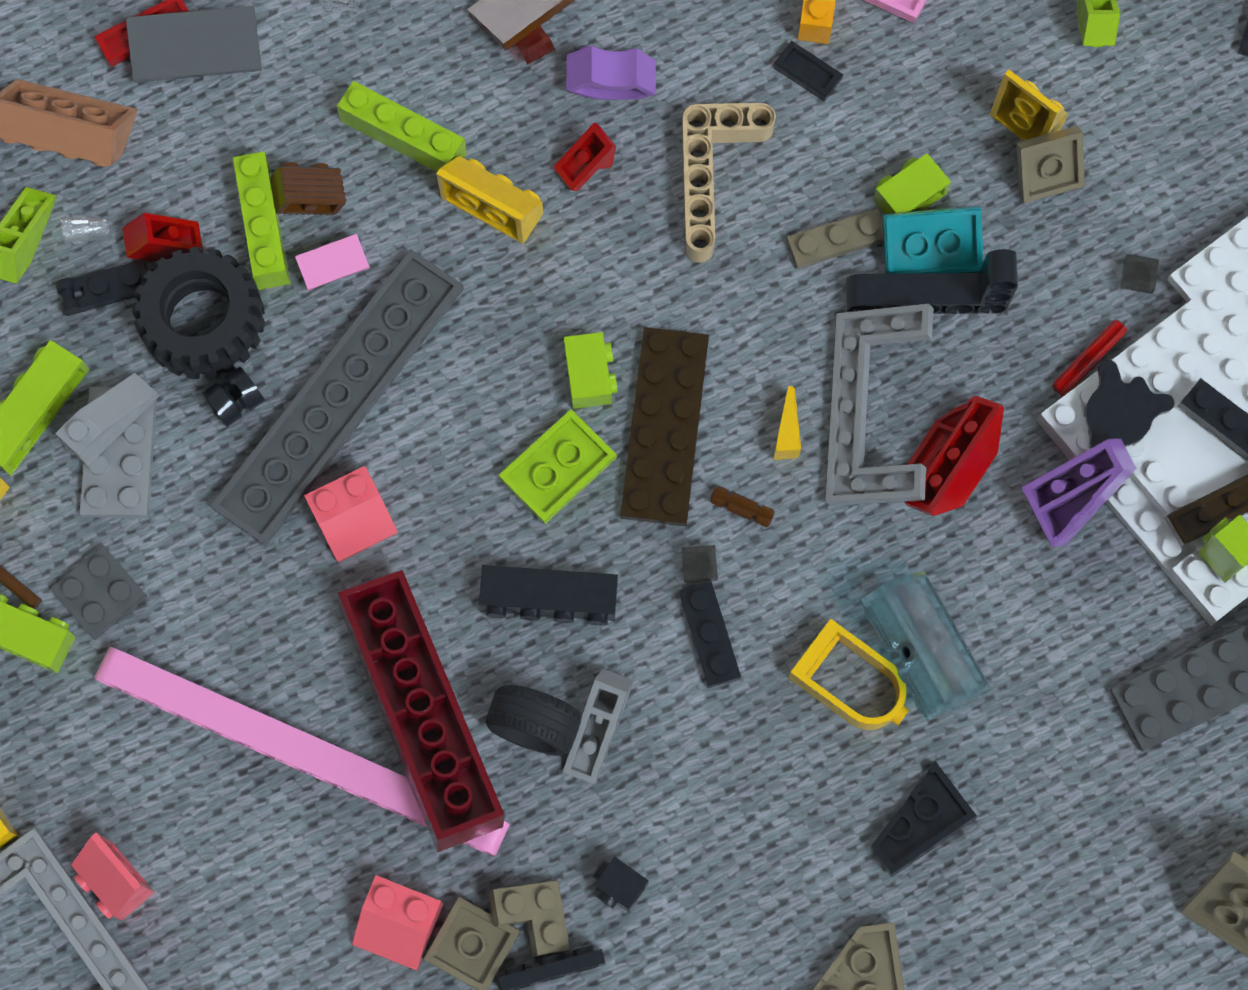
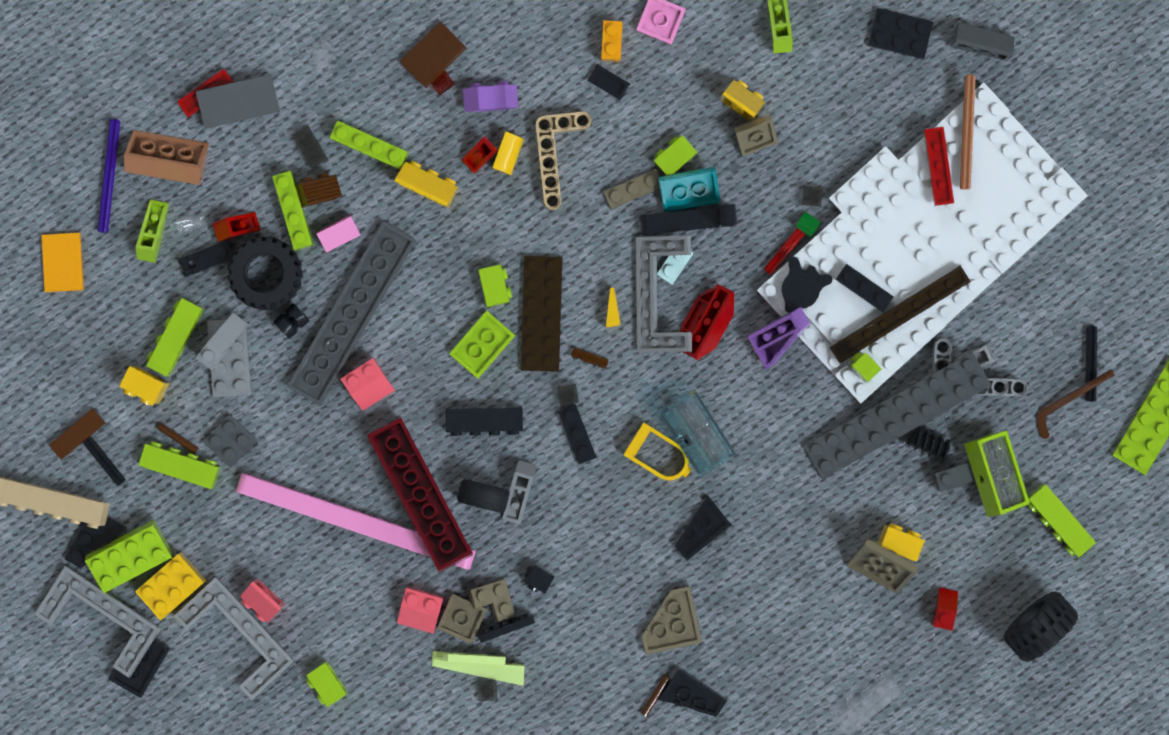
camera: 10 degrees left, 15 degrees up
(303, 126) = (310, 146): none -> clear smoke plate
(631, 162) = (508, 153): none -> yellow brick
(899, 366) = (672, 267): none -> light aqua plate
(1131, 317) = (807, 224): none -> green tile

